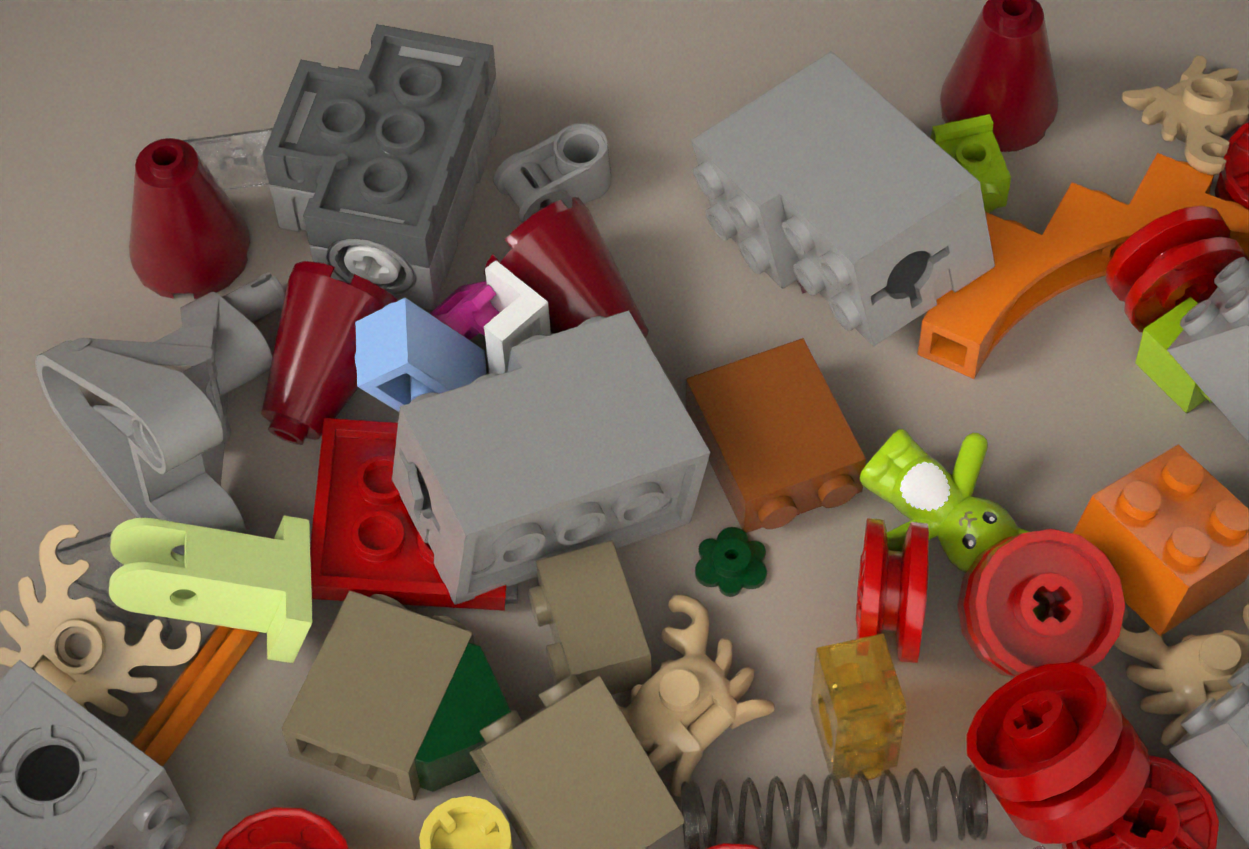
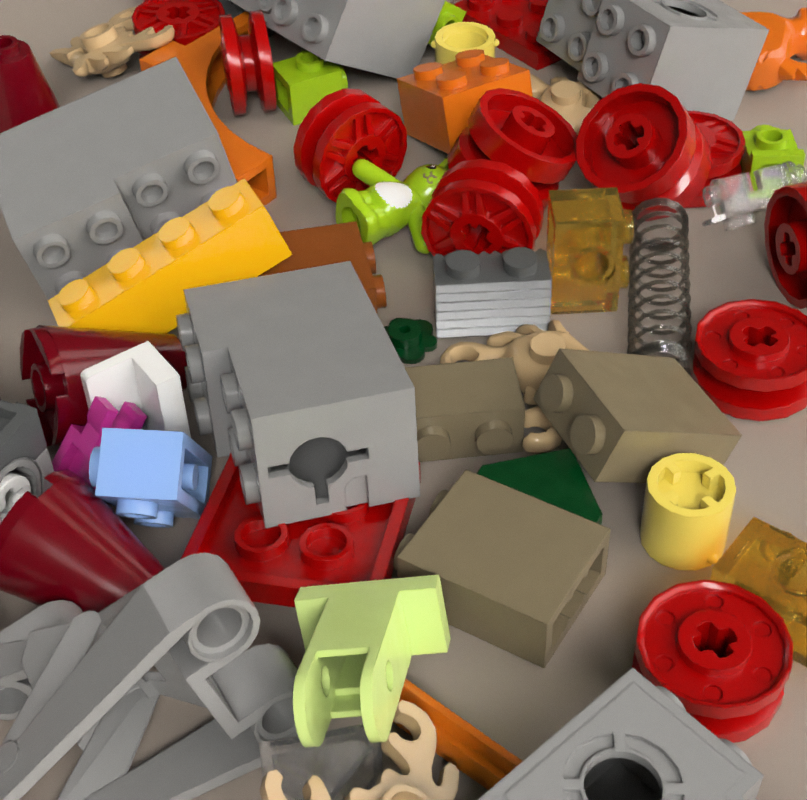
camera: 80 degrees left, 15 degrees down
(710, 303) = (144, 285): none -> yellow brick
(783, 622) = (491, 292): none -> brick
(1024, 418) = (346, 129): none -> red wheel

